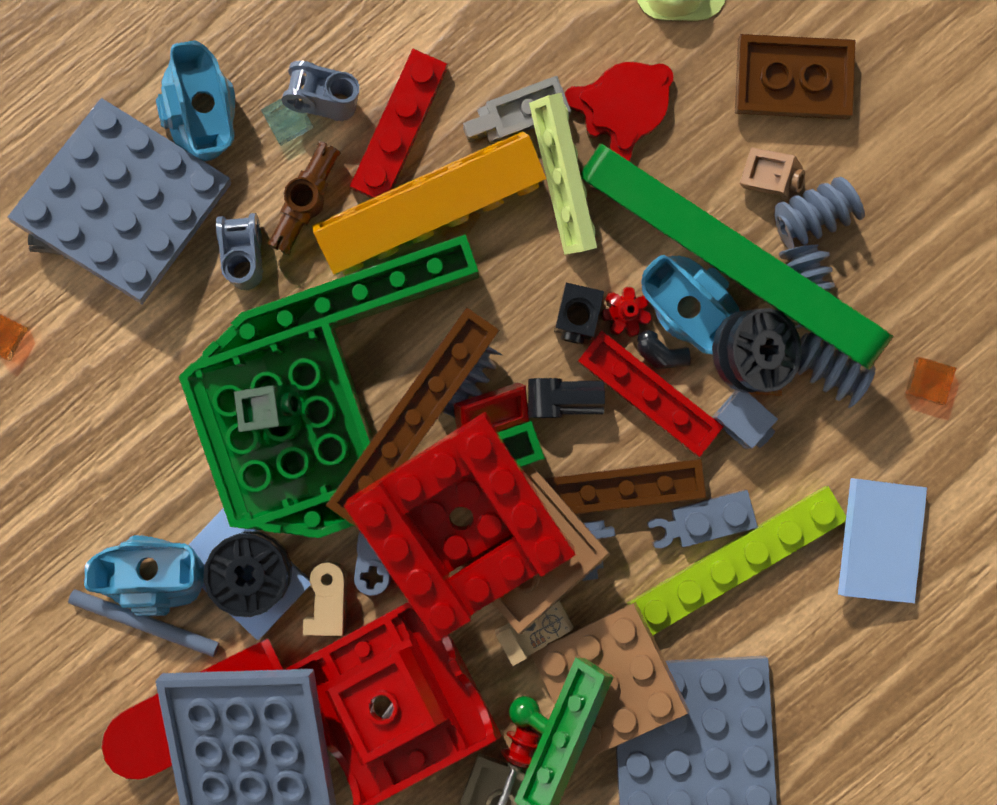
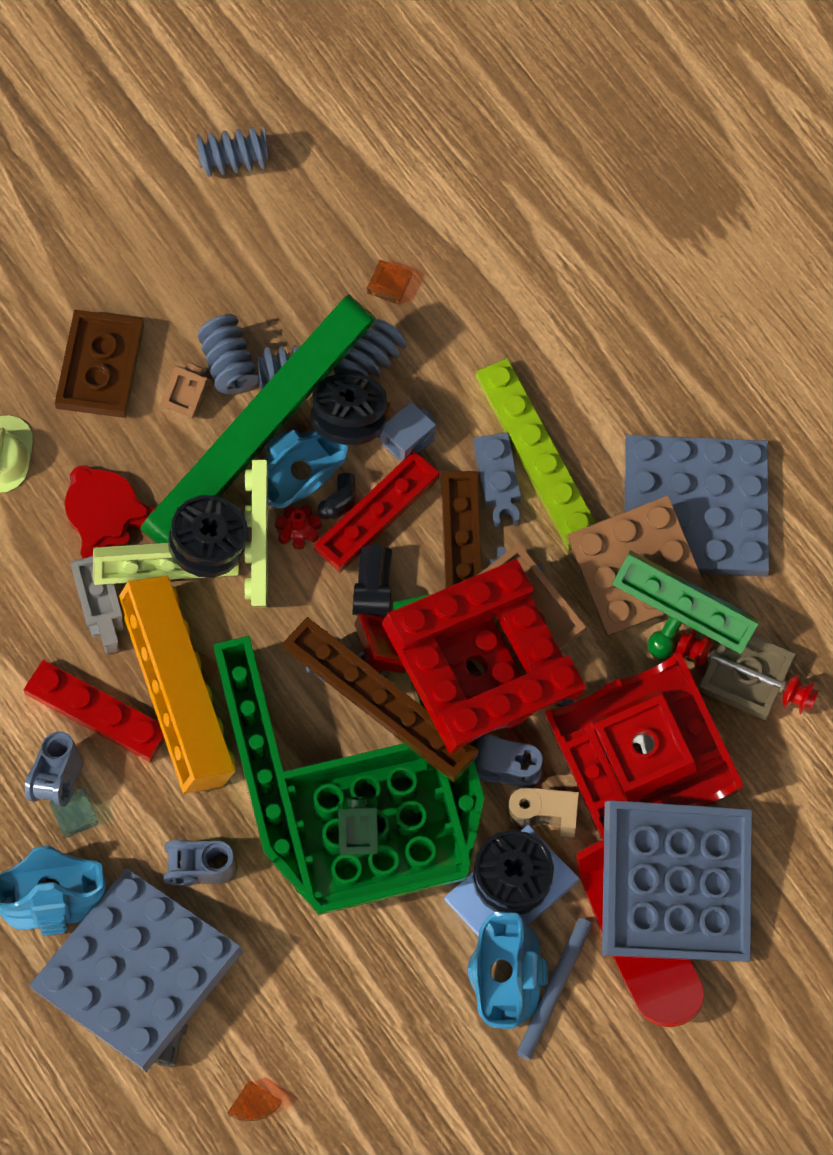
camera: 85 degrees left, 20 degrees down
(311, 179) = (172, 807): reddish brown pin -> none
(545, 630) = (597, 642): tan leg -> none
(581, 296) = (290, 550): black brick -> none
(609, 212) = (207, 536): none -> black wheel
(616, 266) = (257, 517): none -> yellowish green plate
(882, 541) = (528, 332): light blue tile -> none

